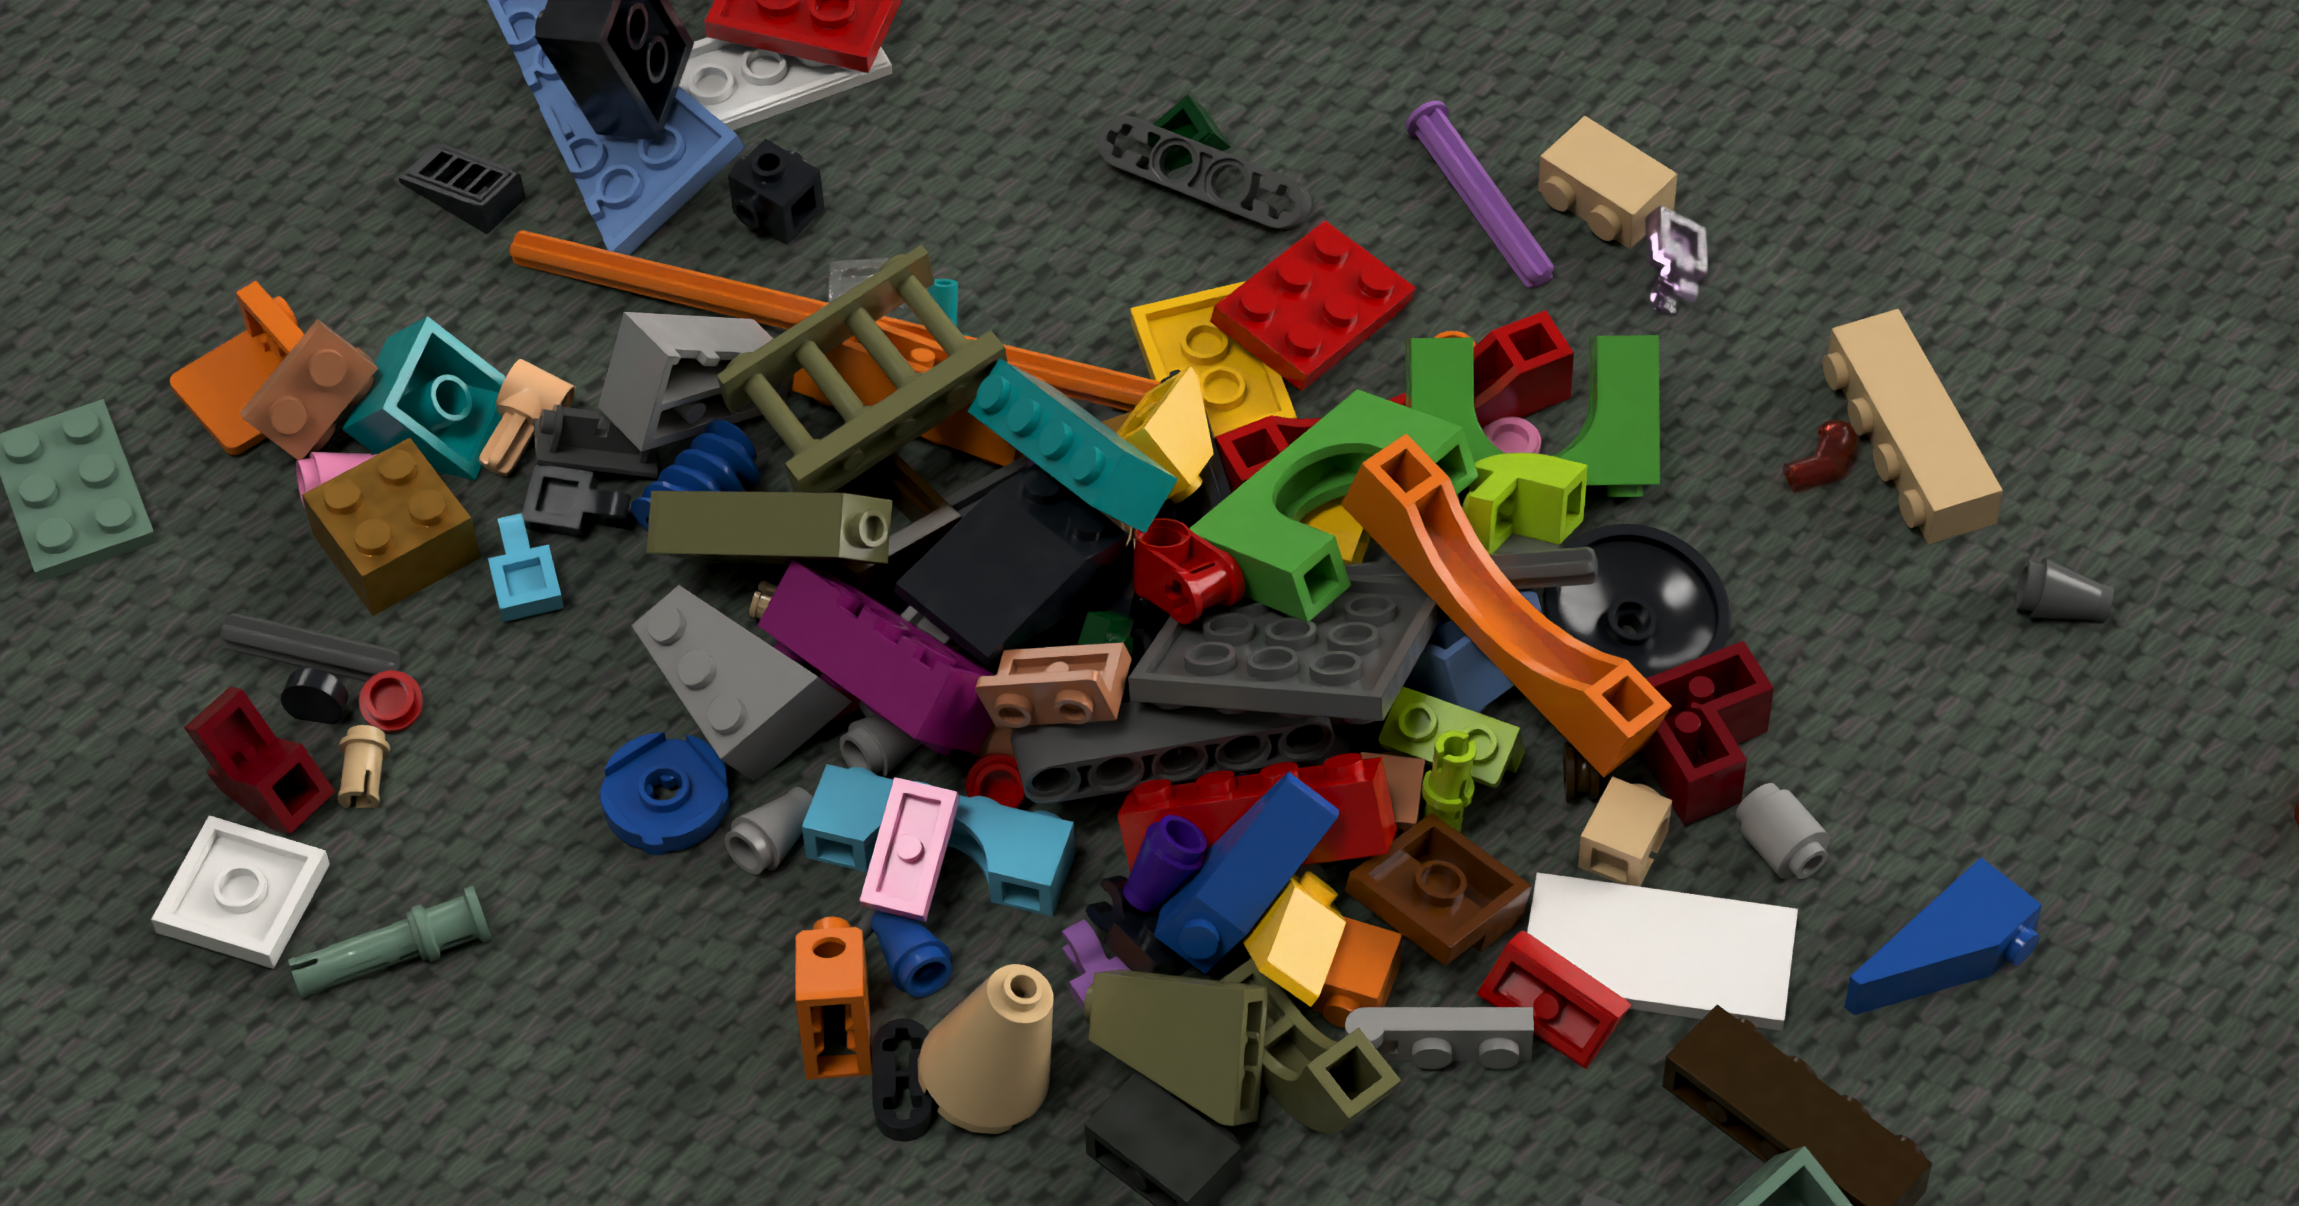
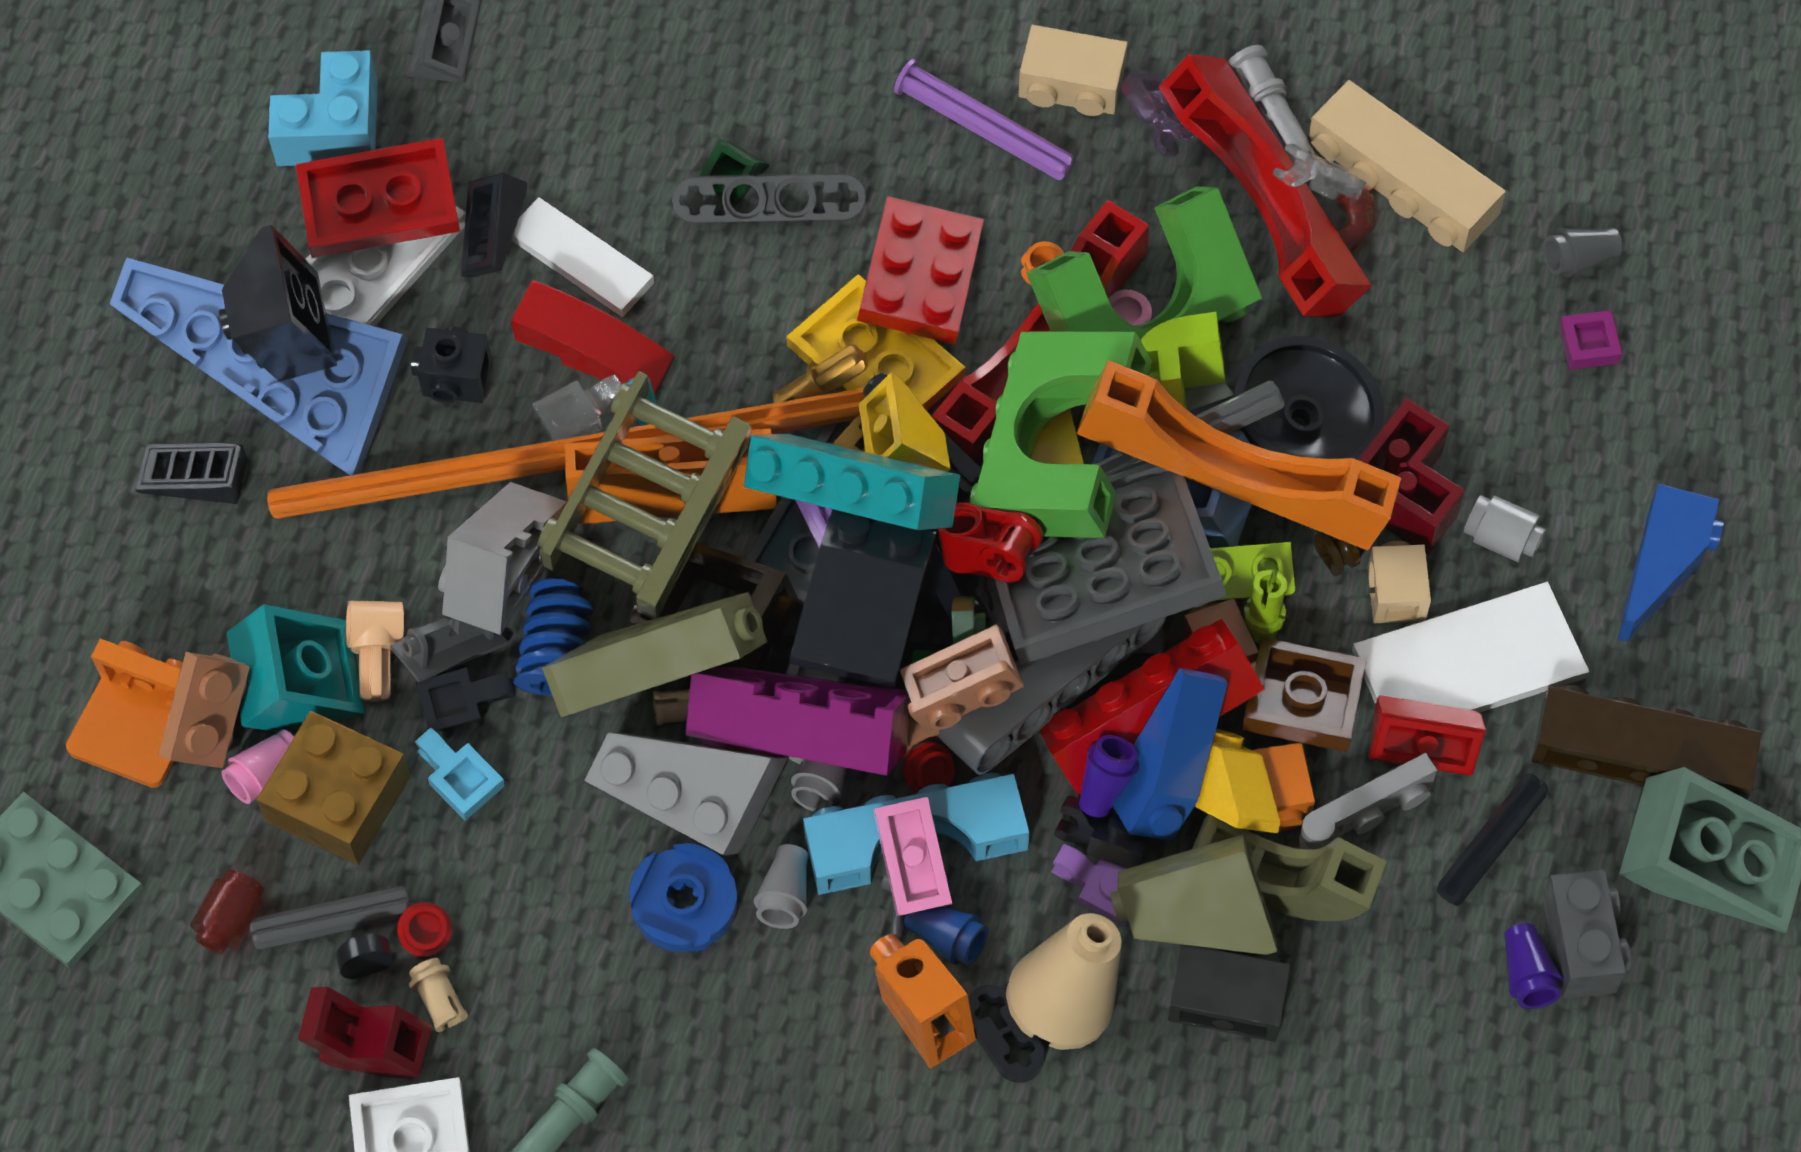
camera: 30 degrees left, 10 degrees up
(212, 593) = (227, 911): none -> clear red brick
(909, 72) = (490, 222): none -> black slope
(919, 212) = (586, 337): none -> red slope
(977, 151) = (581, 257): none -> white tile
(1144, 357) = (826, 376): none -> pearl gold axle
(1562, 1141) = (1492, 839): none -> black axle
(1736, 279) = (1308, 248): none -> red arch
(1804, 297) = (1269, 96): none -> light grey pin
(1809, 393) = (1325, 176): none -> clear plate
(2010, 688) = (1590, 340): none -> magenta plate

